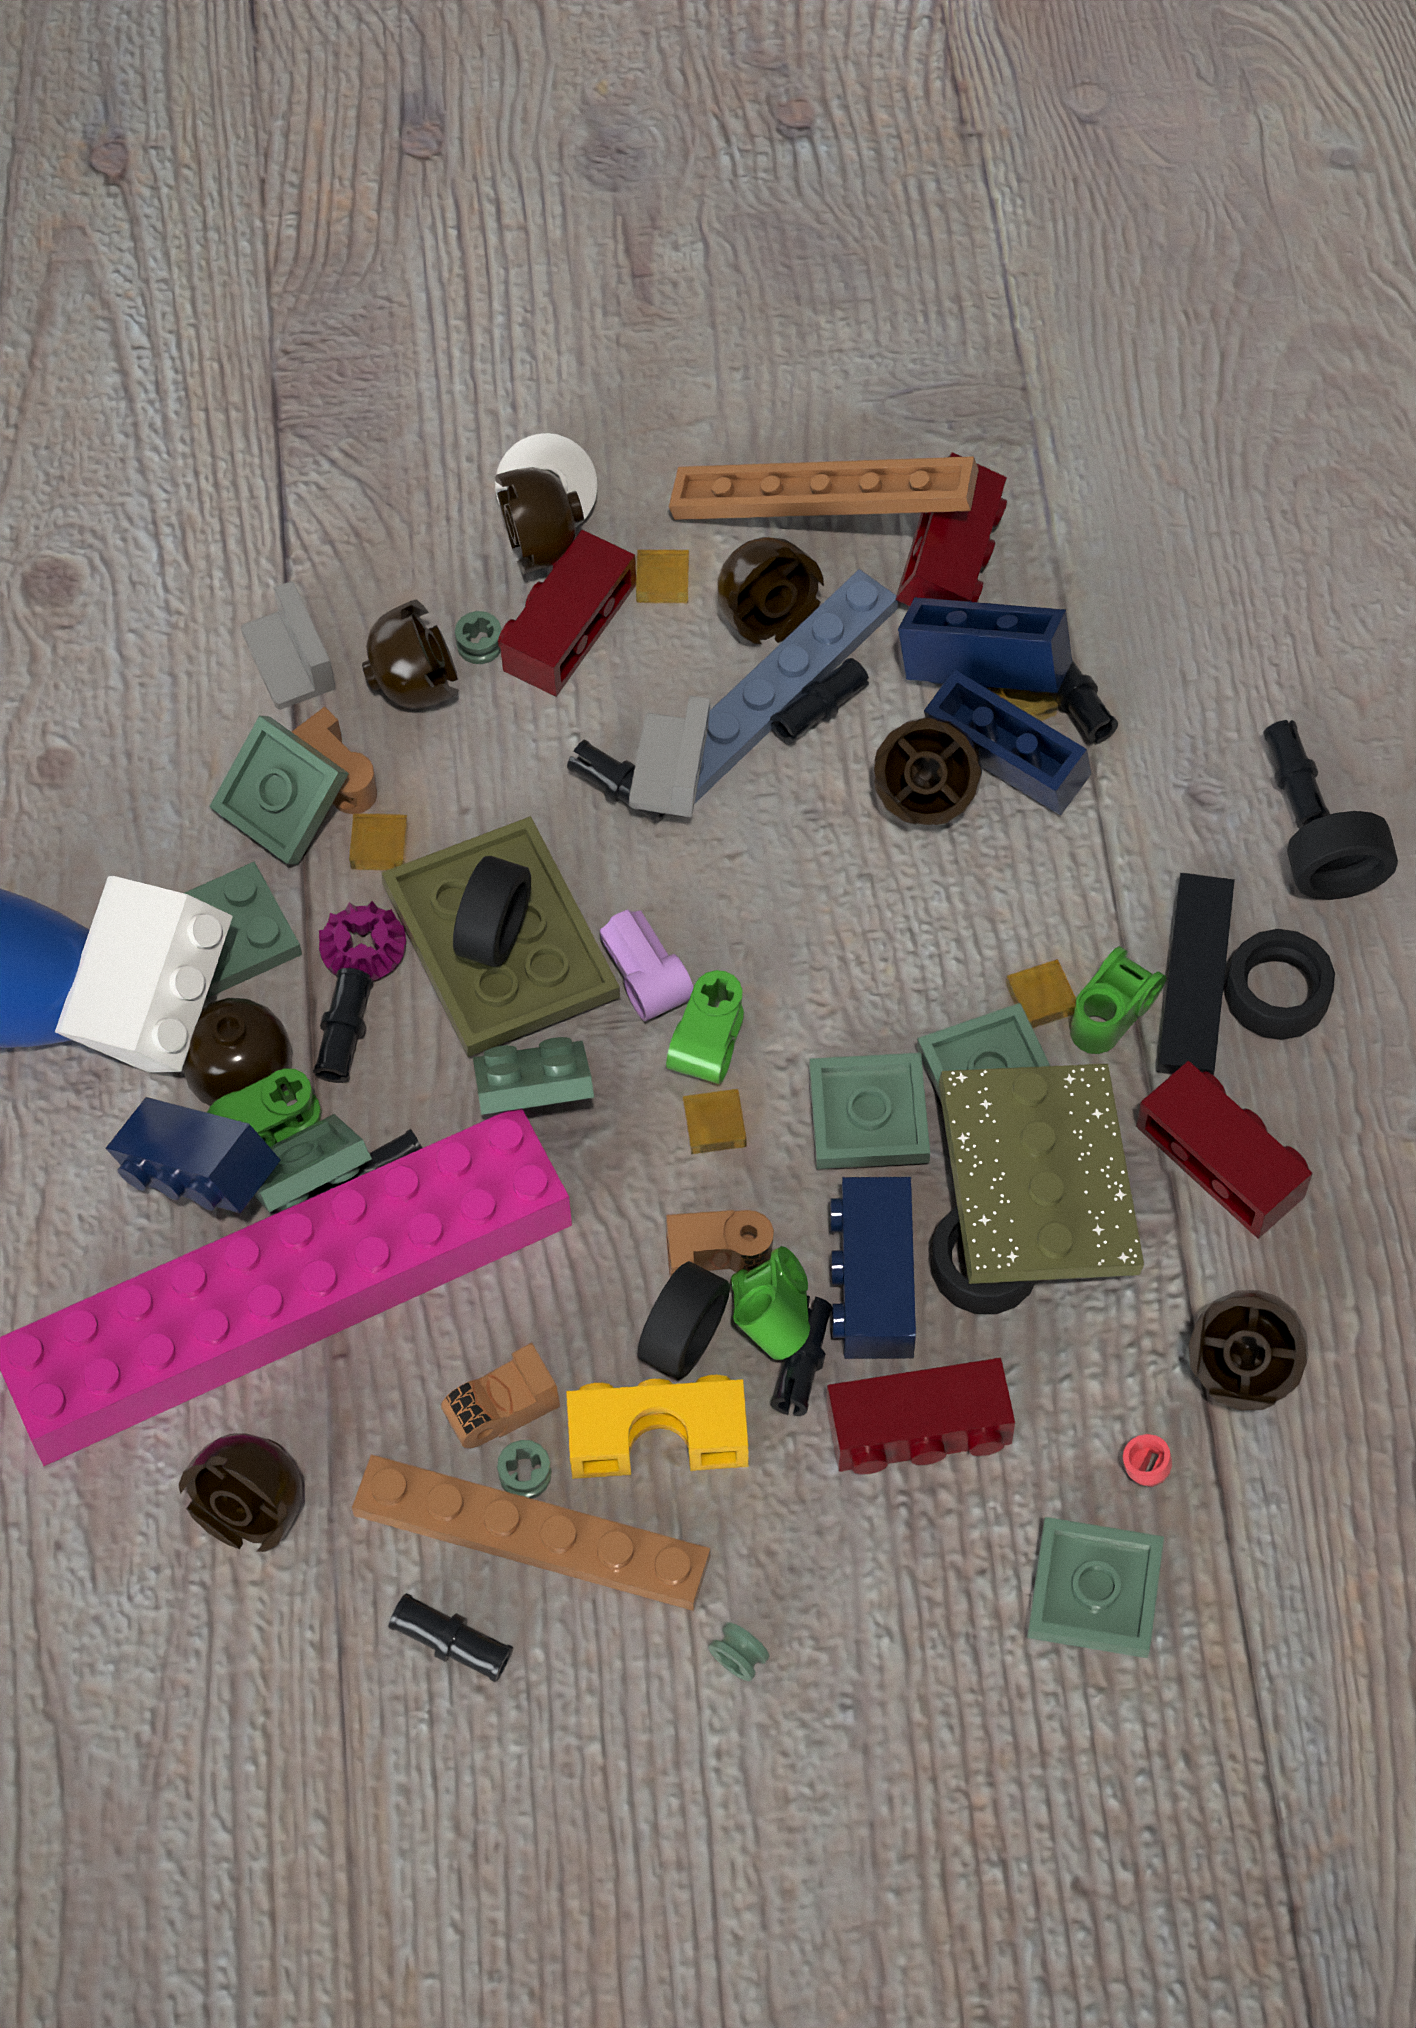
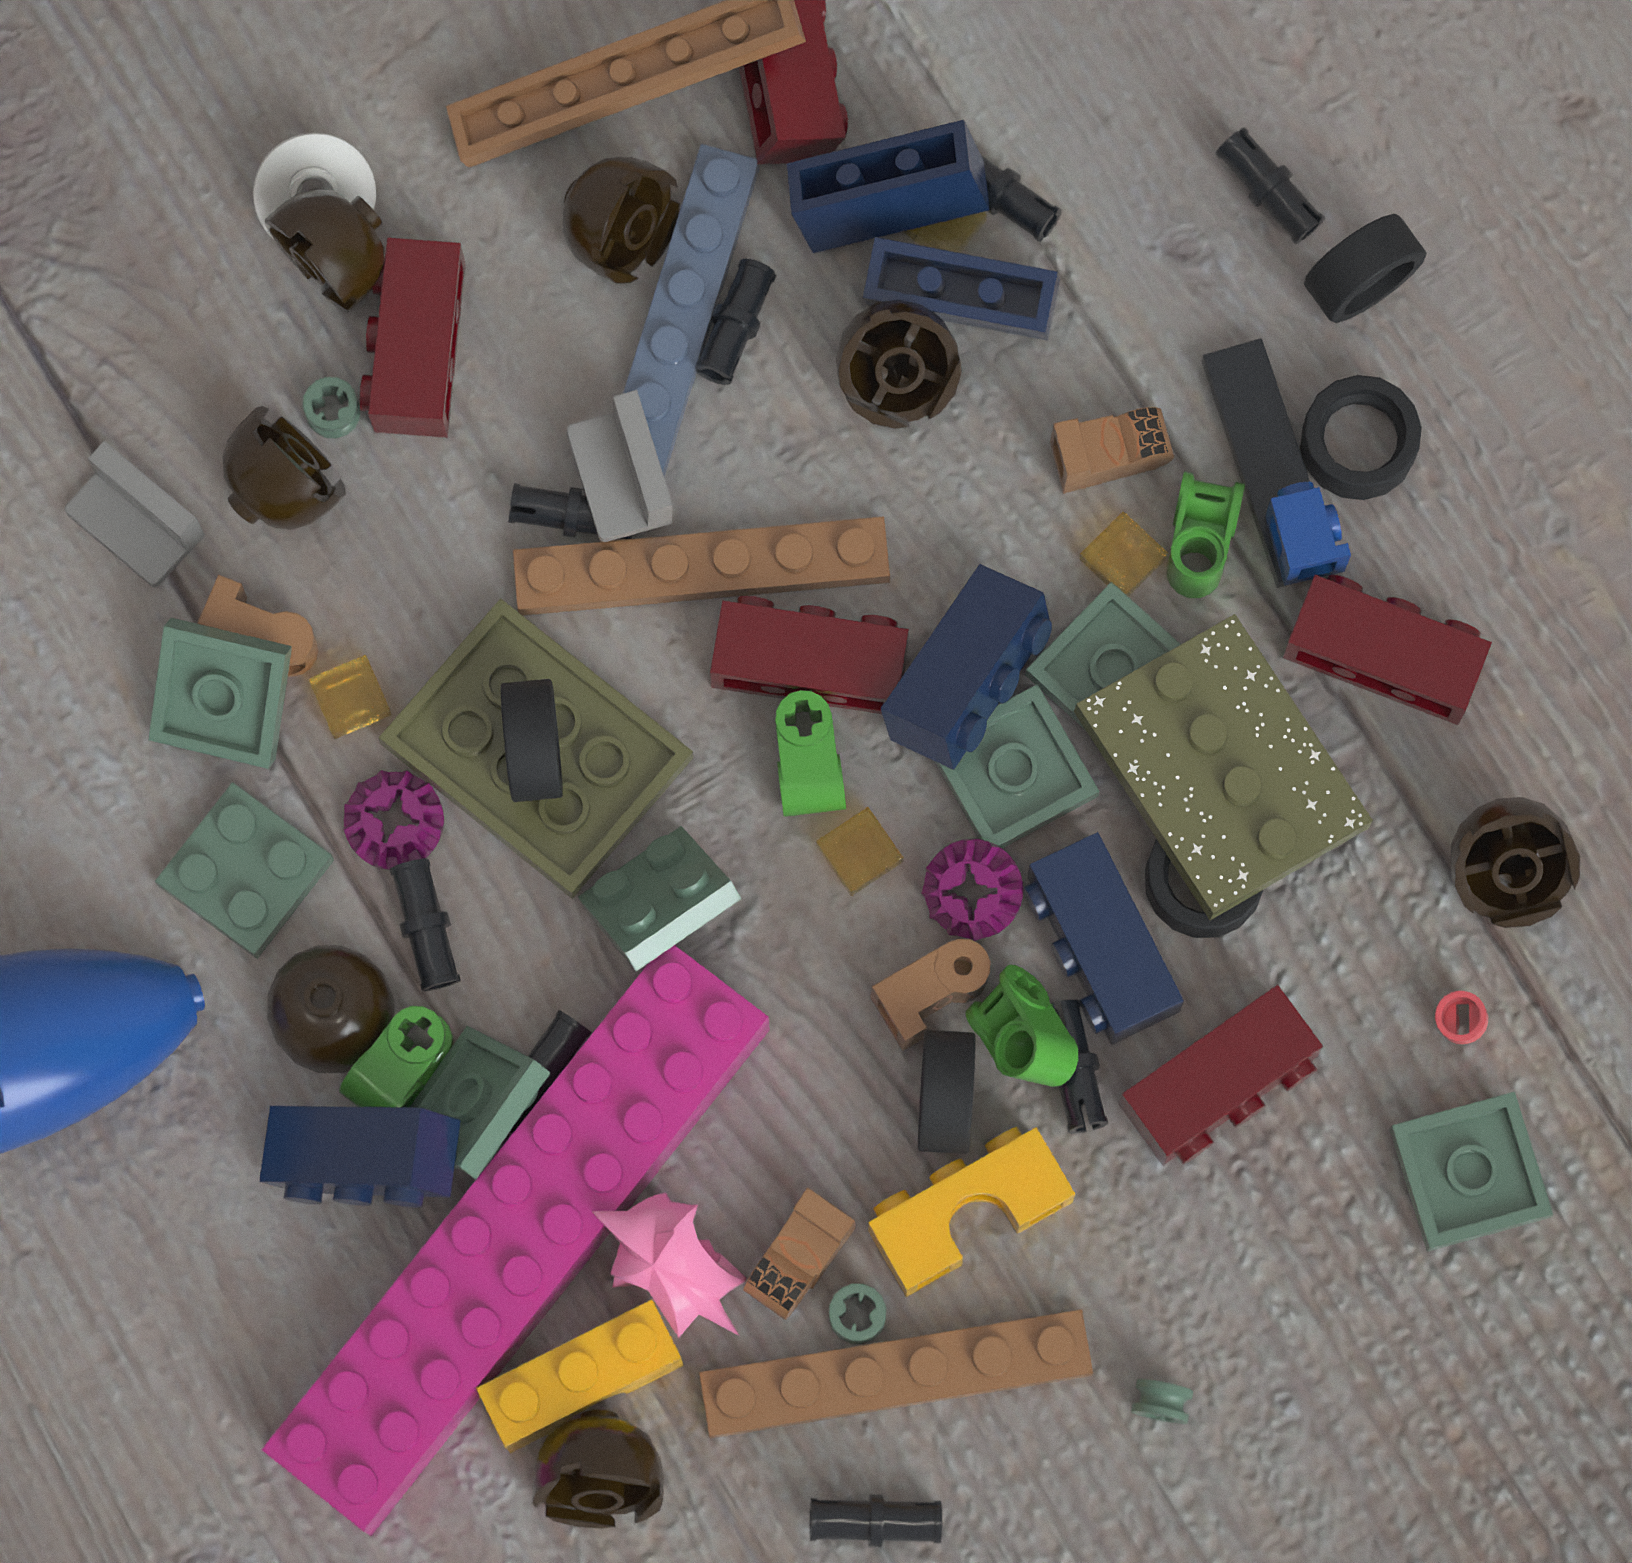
camera: 25 degrees left, 15 degrees up
(144, 974) = (203, 978): white slope -> none
(311, 1405) = (579, 1374): none -> yellow arch
(391, 1352) = (669, 1261): none -> bright pink hair
(651, 976) = (721, 723): lavender piece -> none
(662, 576) = (492, 243): clear yellow tile -> none
(702, 863) = (701, 566): none -> medium nougat plate
(776, 972) = (807, 650): none -> dark red brick
(797, 1207) = (991, 868): none -> magenta gear
(868, 1011) = (967, 667): none -> dark blue brick
(1071, 908) = (1109, 447): none -> medium nougat leg
(1196, 1029) = (1305, 534): none -> blue brick

